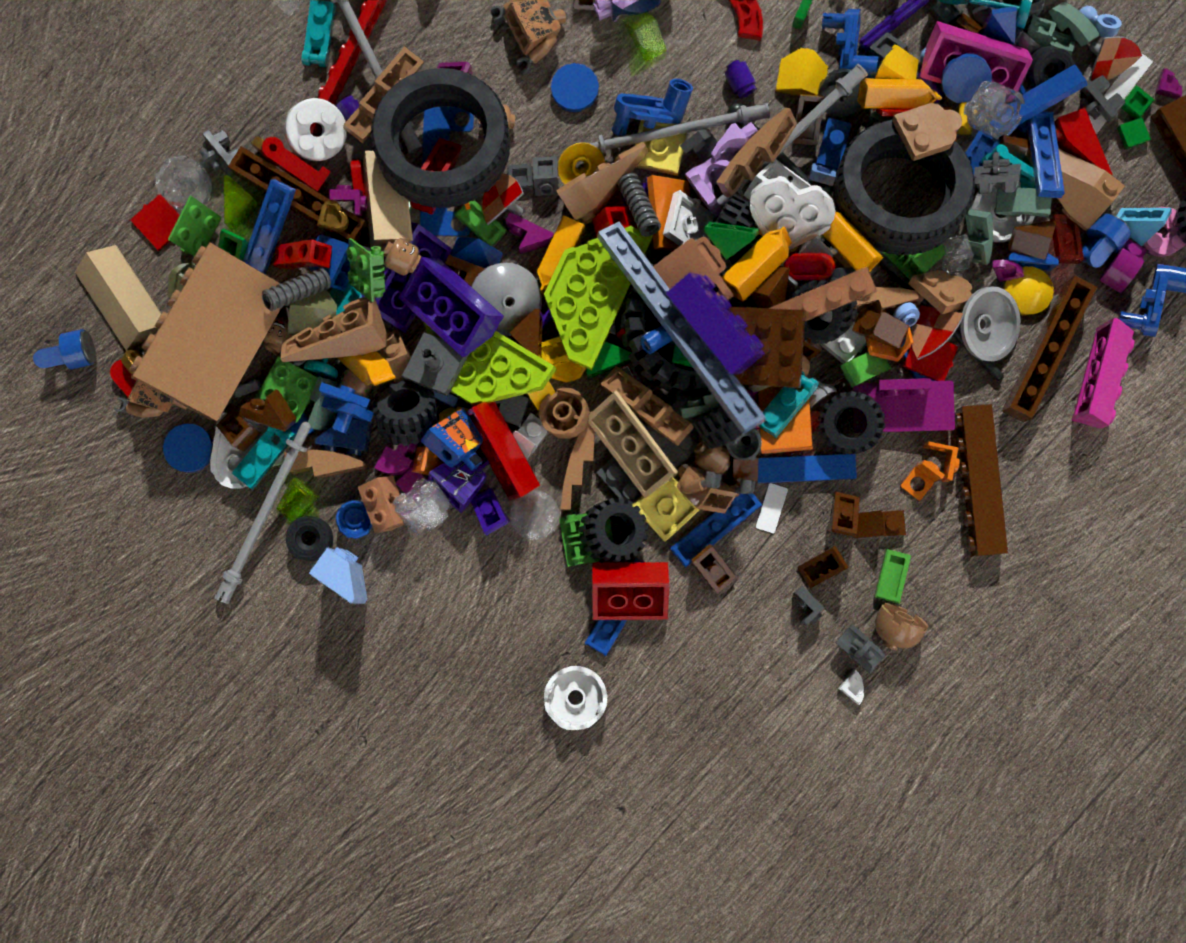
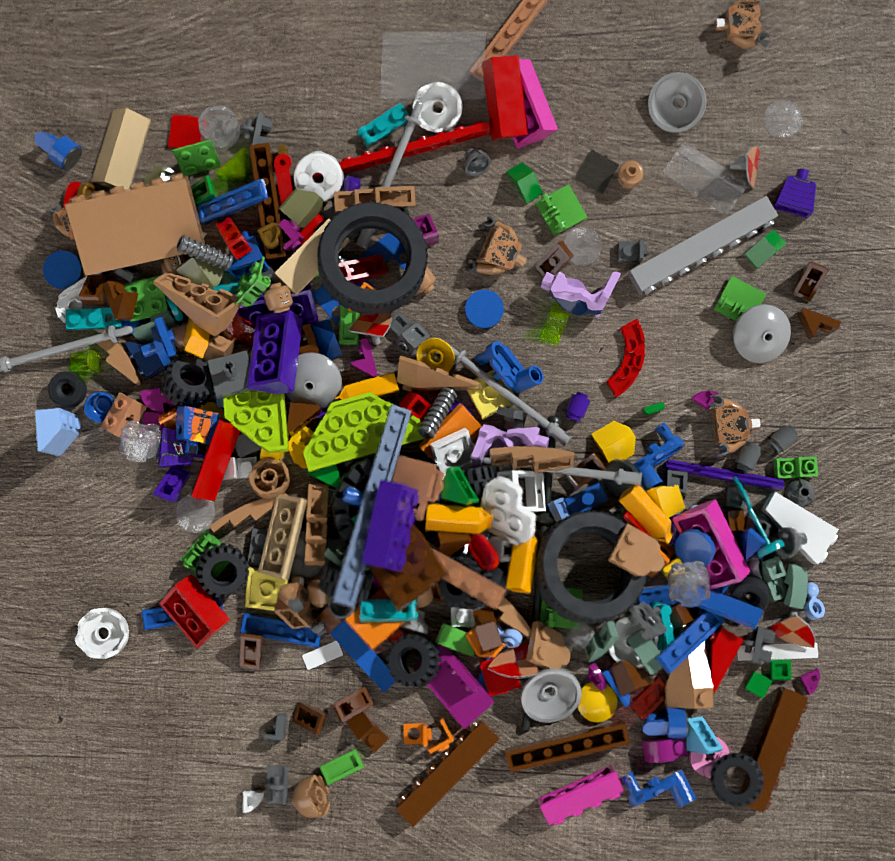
camera: 50 degrees right, 0 degrees up
(330, 166) = (302, 206): none -> olive slope
(402, 323) = (241, 330): none -> clear red plate

